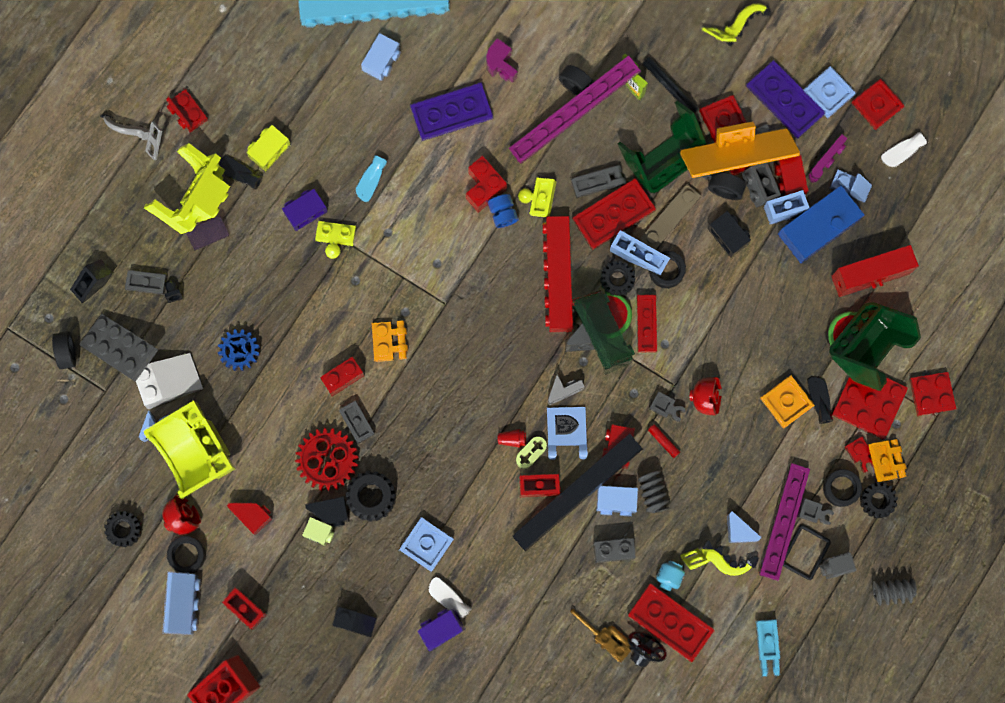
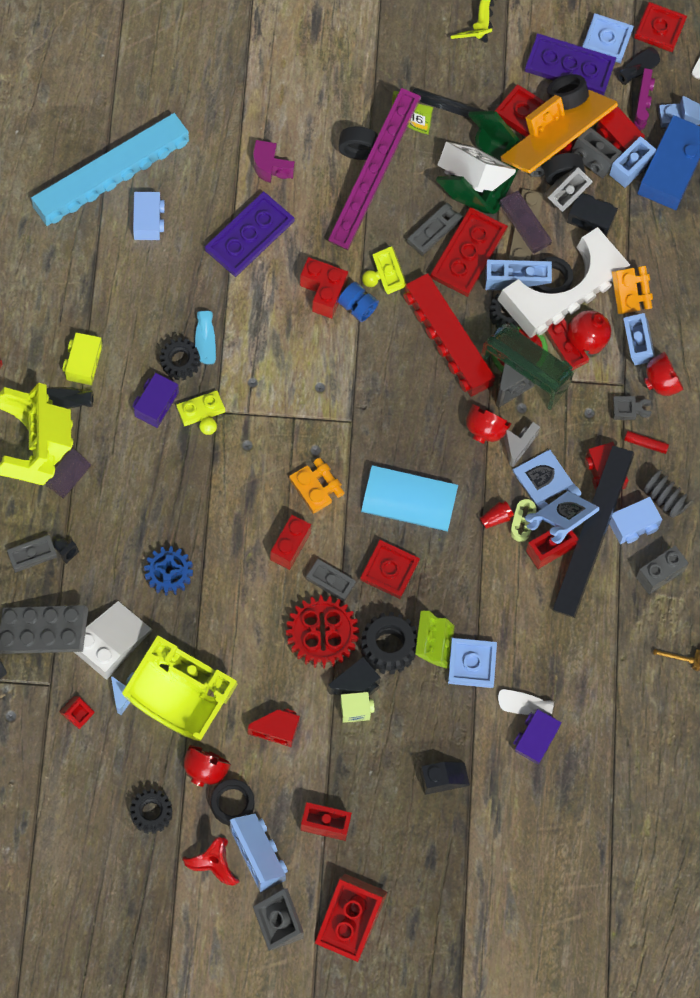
camera: 30 degrees left, 10 degrees down
(112, 422) = (77, 711): none -> red slope
(148, 592) = (214, 860): none -> red piece
(169, 664) = (278, 920): none -> dark grey slope
(341, 175) = (180, 371): none -> black tyre
(406, 437) = (390, 569): none -> red plate
(406, 511) = (434, 639): none -> lime slope
(453, 389) = (409, 498): none -> medium azure slope
(544, 362) = (485, 425): none -> red cylinder
(560, 466) = (564, 514): none -> light blue flag
(637, 292) = (538, 310): none -> white arch
(656, 147) = (475, 166): none -> white slope
(669, 329) = (589, 331): none -> red cylinder
(671, 213) = (525, 222): none -> clear purple plate
(705, 356) = (639, 338): none -> light blue brick
(718, 311) = (626, 289): none -> light orange plate
(719, 204) = (568, 188): none -> light grey slope
(768, 114) = (571, 89): none -> black tyre
(846, 127) = (647, 59): none -> black piece

